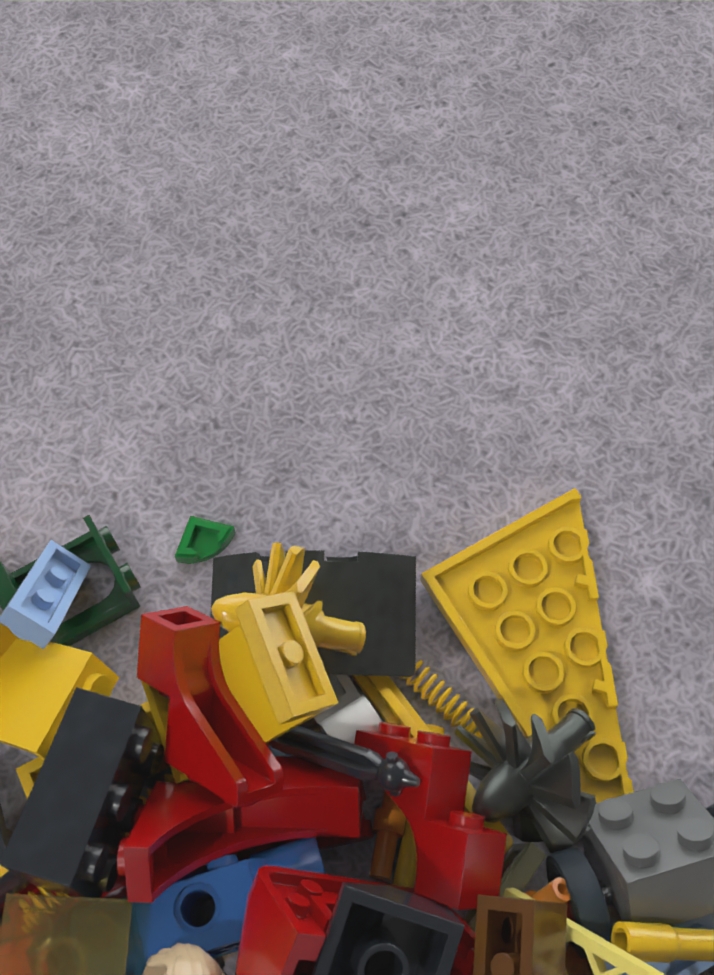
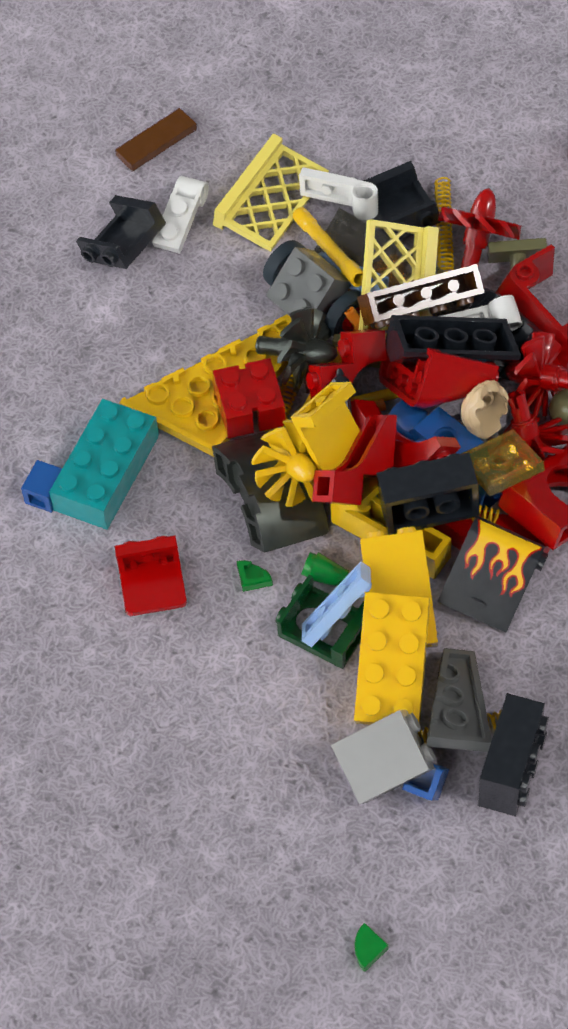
camera: 115 degrees left, 5 degrees down
(125, 641) = (324, 569): none -> green cone
(269, 414) = (151, 575): none -> red bracket
(476, 647) = (247, 391): none -> red piece
(479, 429) = (104, 464): none -> teal brick
(482, 343) = (38, 484): none -> blue panel

